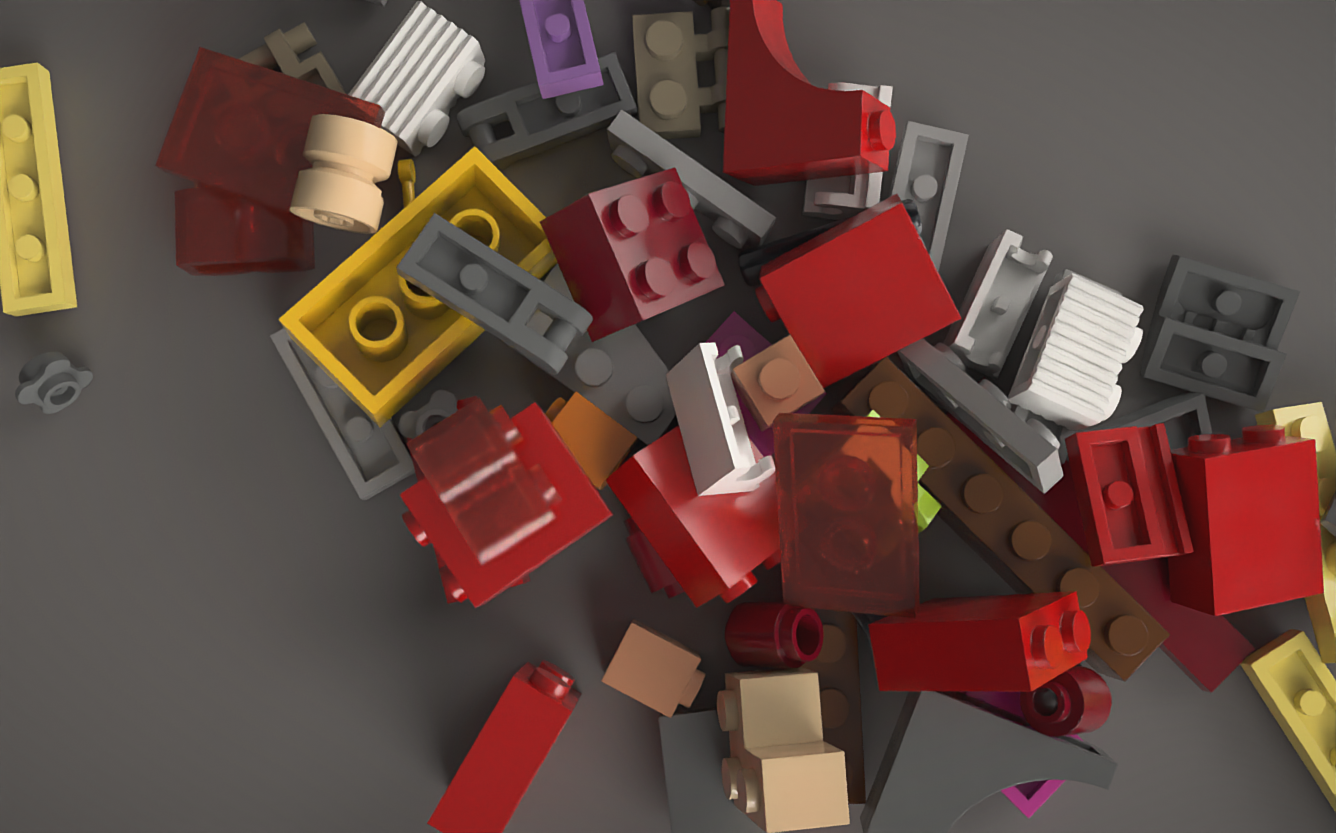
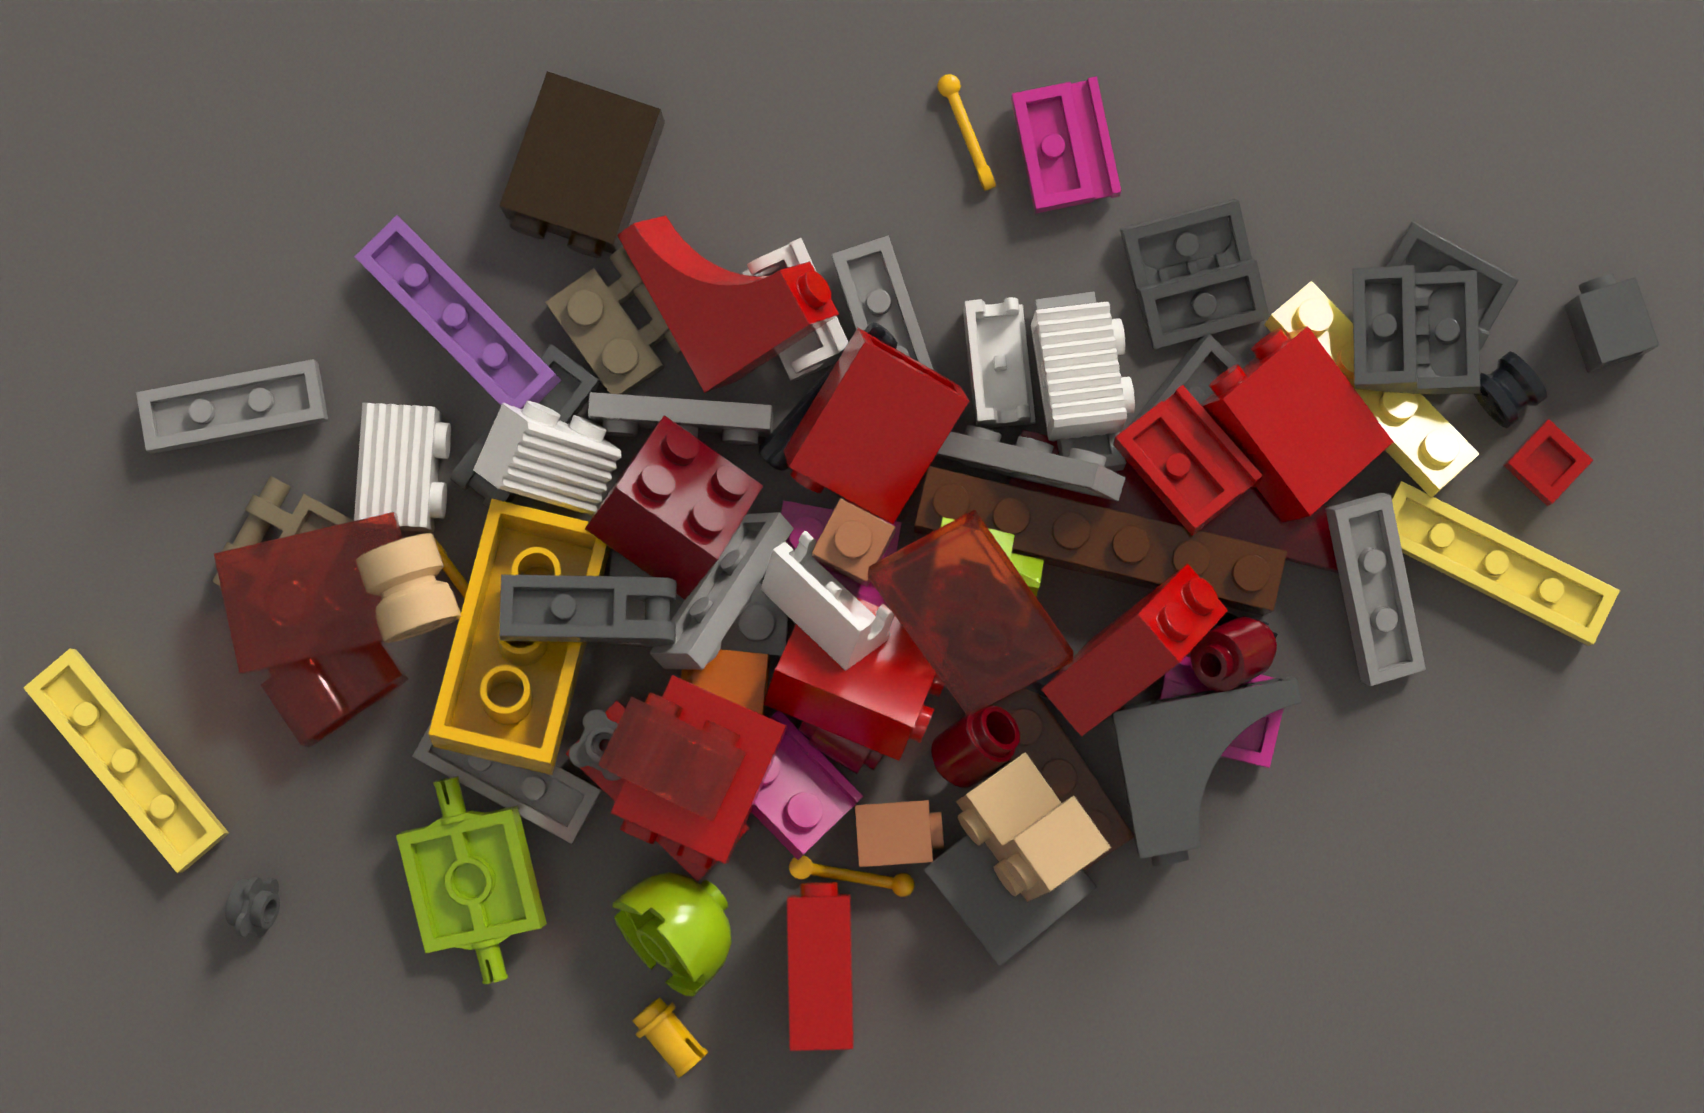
camera: 25 degrees left, 0 degrees up
(252, 476) = (471, 879): none -> lime plate
(341, 724) = (669, 1036): none -> yellow pin
(407, 633) = (678, 926): none -> lime cylinder
(545, 142) = (548, 458): none -> white brick
(553, 644) = (901, 884): none -> yellow hinge
(592, 580) = (802, 793): none -> dark pink plate
(628, 357) = (723, 593): none -> light grey plate
(1094, 43) = (949, 87): none -> yellow hinge
(1171, 151) = (1065, 145): none -> dark pink plate
(1224, 715) = (1375, 588): none -> light grey plate

